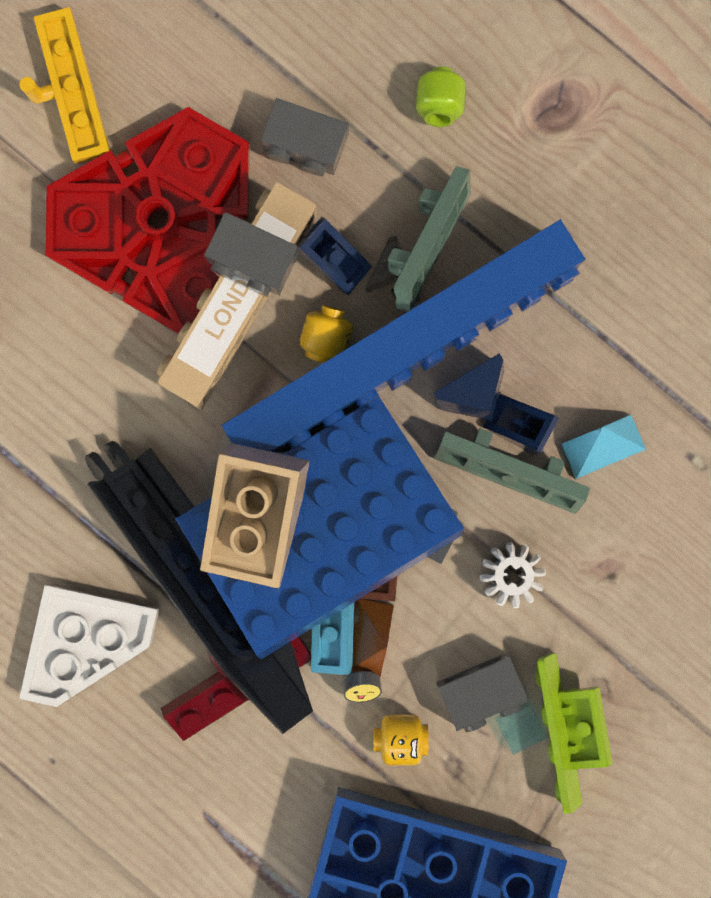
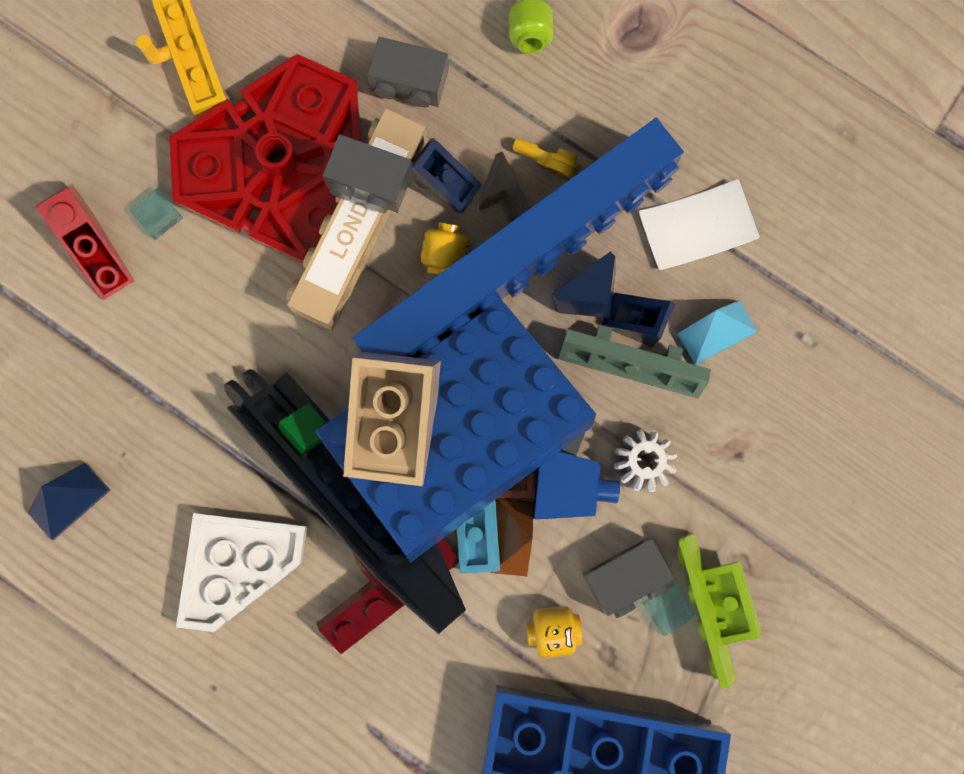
camera: 15 degrees left, 5 degrees down
(27, 266) = (156, 214): none -> clear light blue tile
(163, 509) = (301, 428): none -> green tile
(362, 686) = (510, 583): tile -> none
(433, 596) = (571, 487): none -> blue torso
(443, 213) = (543, 126): sand green hinge -> none
(456, 250) = (562, 162): none -> yellow plate
(597, 330) = (699, 225): none -> white sticker

